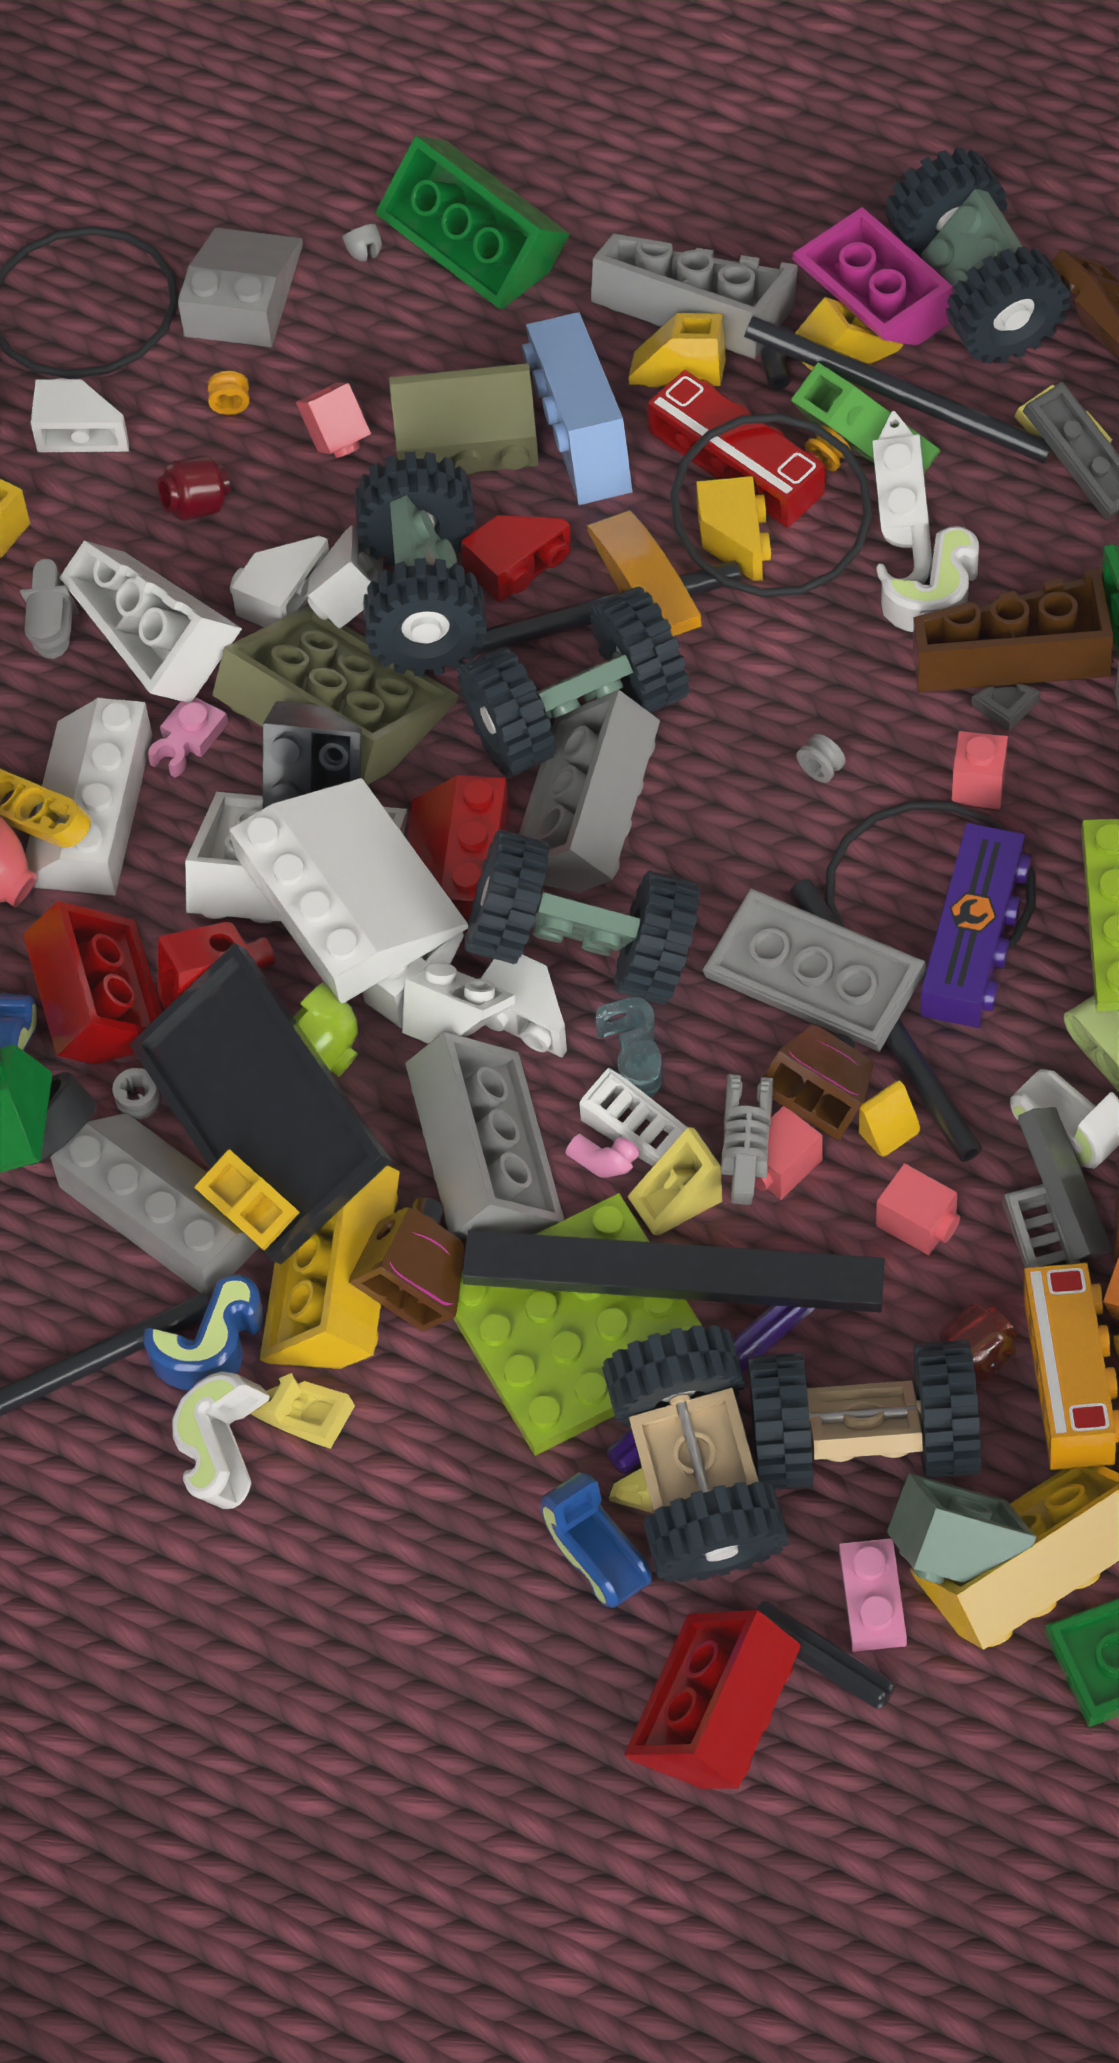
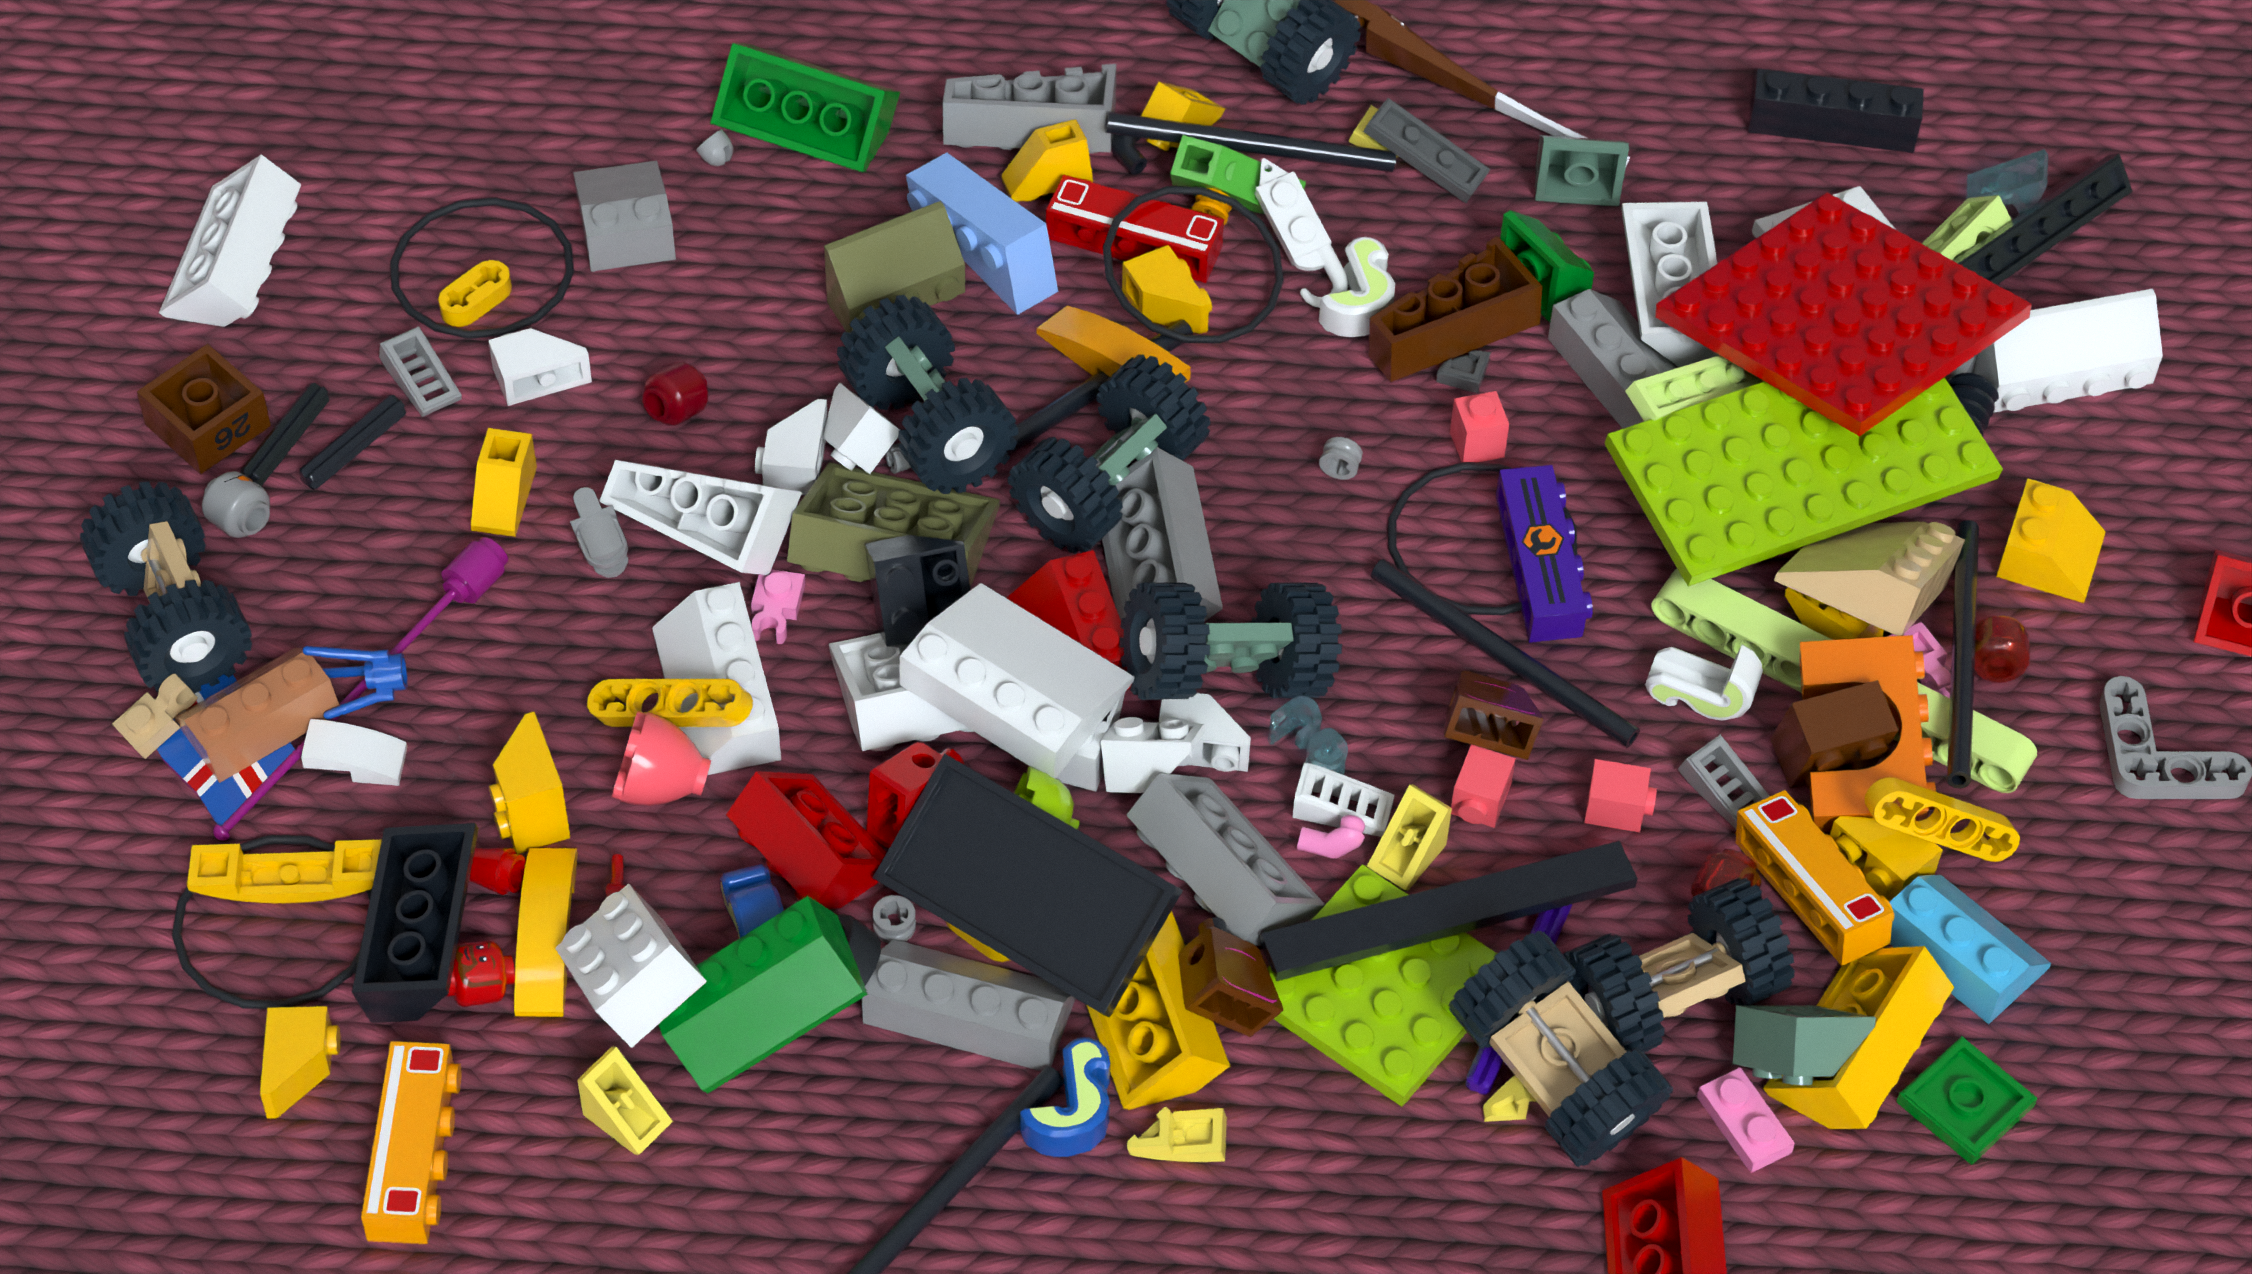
camera: 30 degrees left, 5 degrees down
(59, 327) = (475, 293): none -> yellow beam
(205, 1434) = (1116, 1186): white animal -> none
(228, 392) = (663, 305): light orange bush -> none
(246, 1199) = (1061, 970): yellow slope -> none
(334, 419) = (774, 300): coral brick -> none
(513, 551) = (994, 359): red slope -> none
(594, 1541) = (1499, 1157): blue animal -> none
(746, 1138) = (1461, 778): light grey hinge -> none
(815, 969) = (1430, 629): light grey tile -> none
(833, 1660) = (1753, 1186): black axle -> none
(878, 279) = (1189, 55): dark pink slope -> none
(888, 1119) = (1556, 733): yellow slope -> none
(1064, 1183) = (1731, 733): dark grey tile -> none

